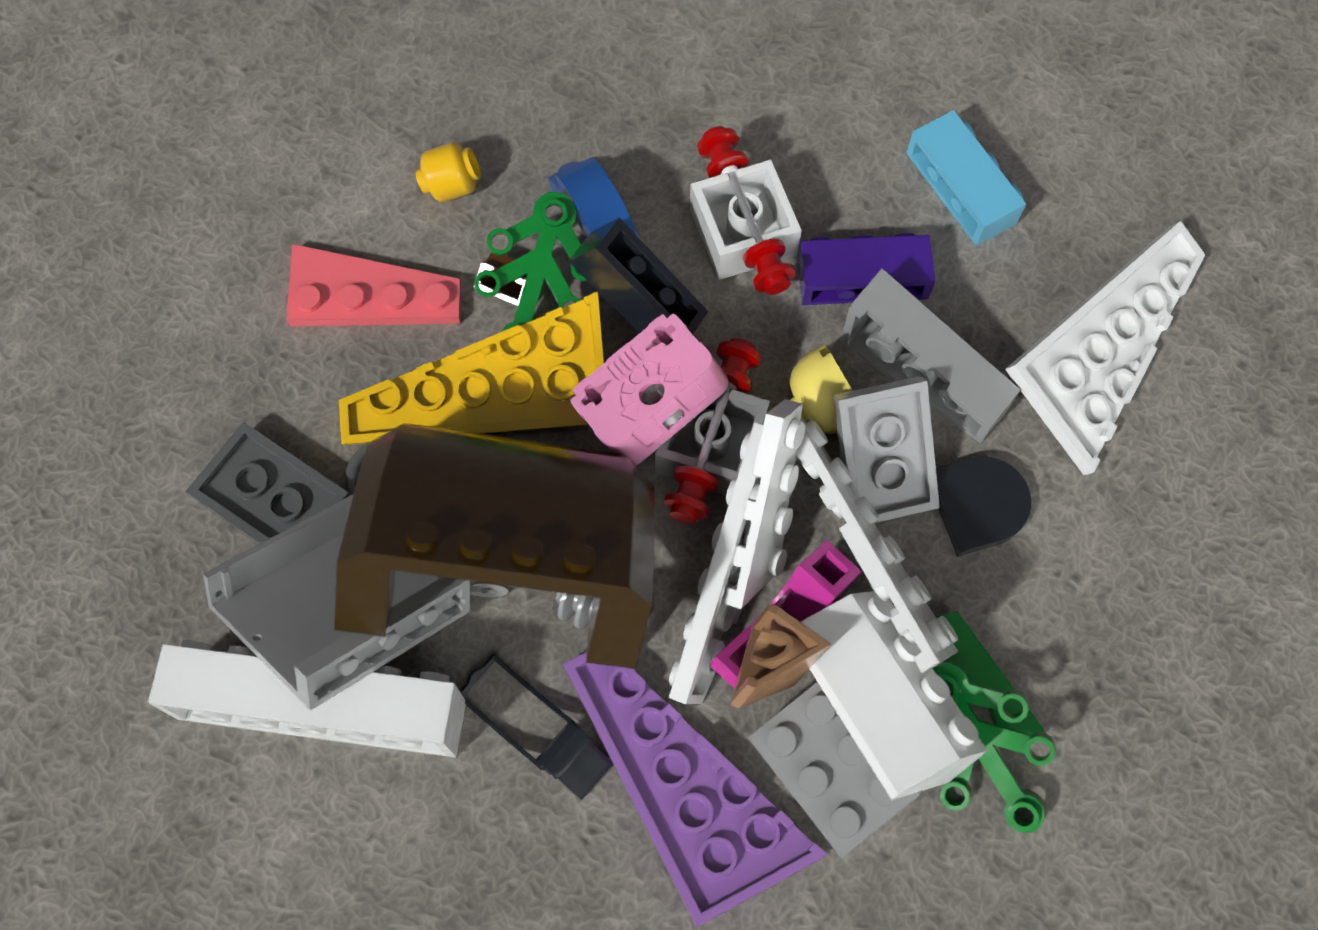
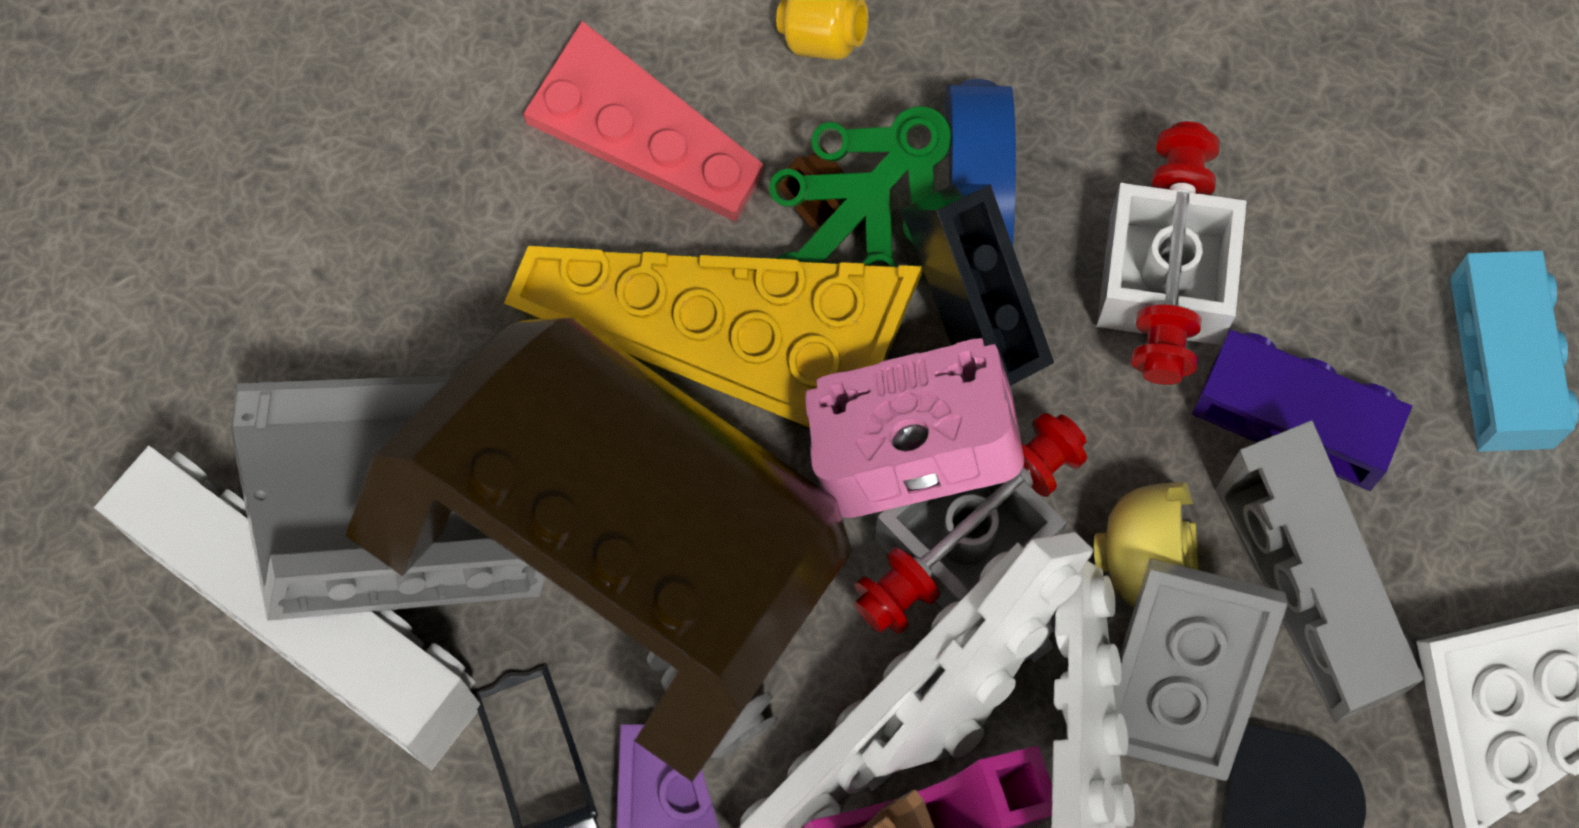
camera: 30 degrees right, 0 degrees up
(261, 486) = (381, 308): dark grey plate -> none

